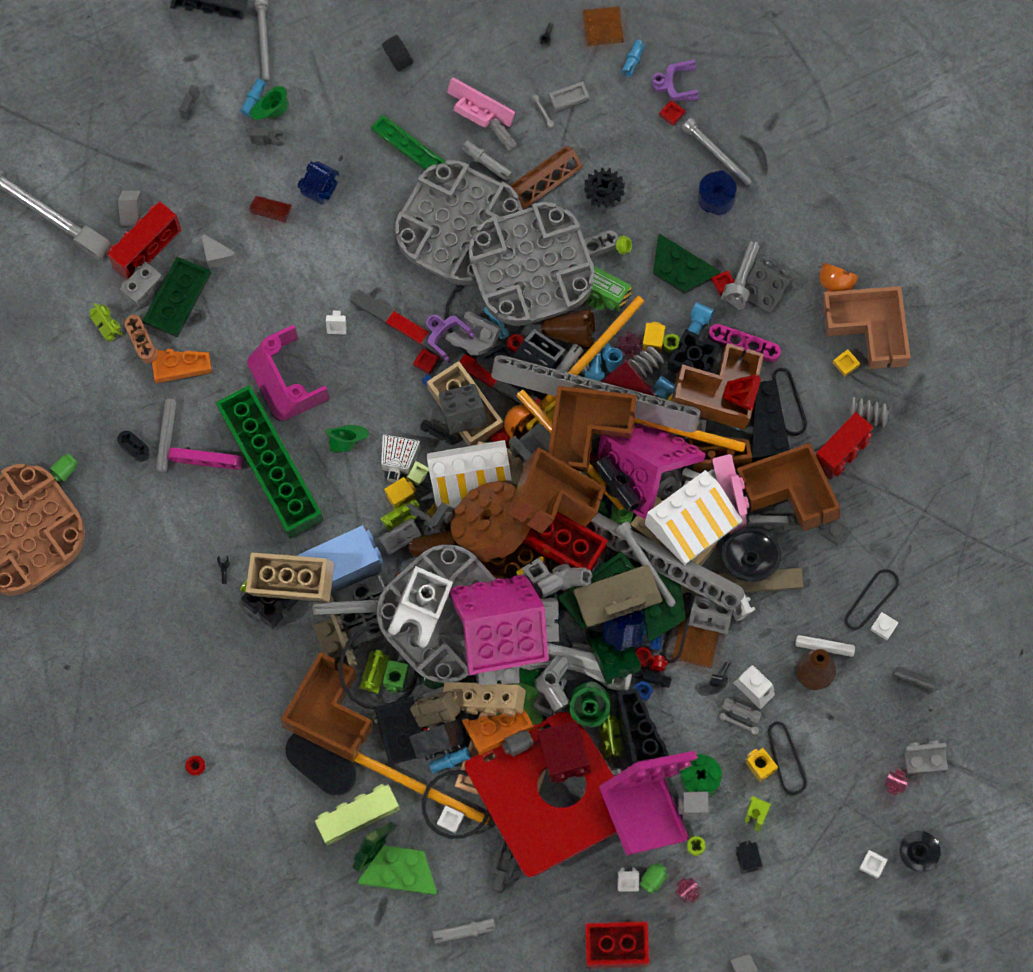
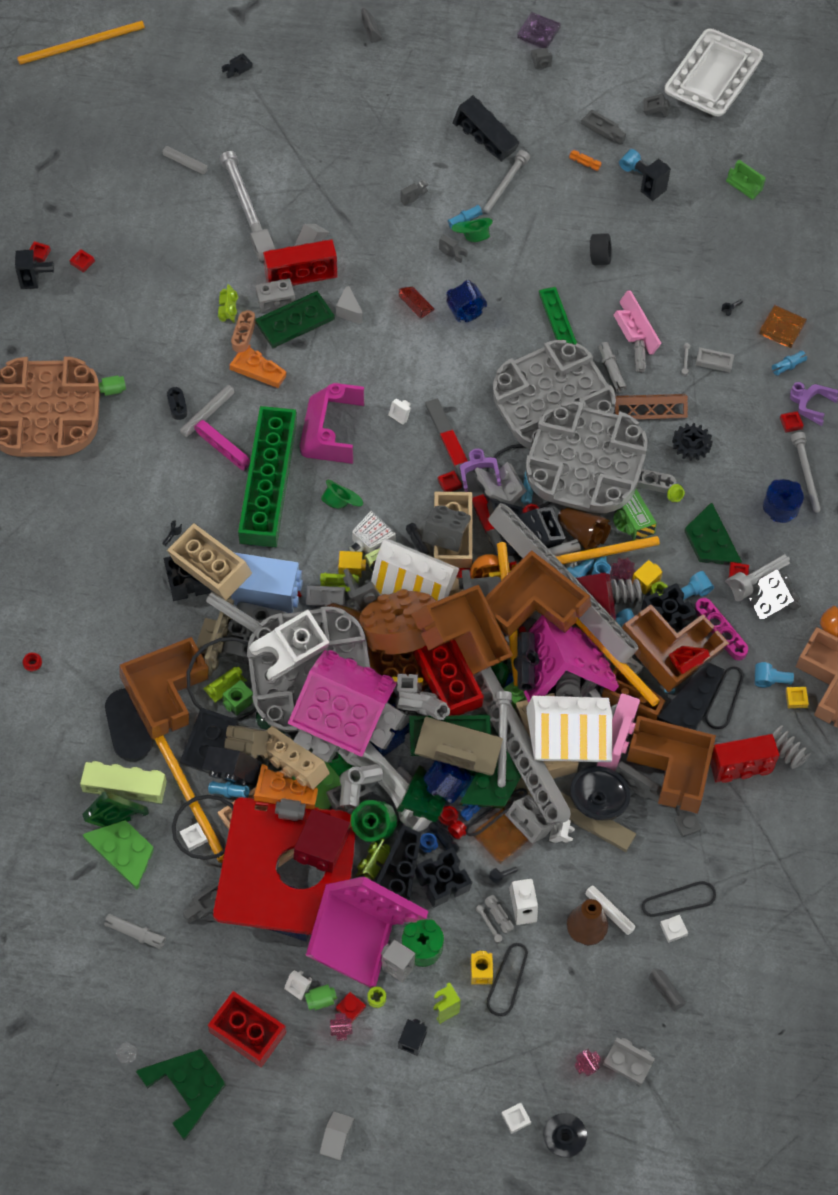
camera: 30 degrees right, 10 degrees down
(681, 868) = (351, 1006): none -> red plate
(689, 707) = (447, 867): none -> black brick
(810, 360) = (766, 675): none -> dark azure pin

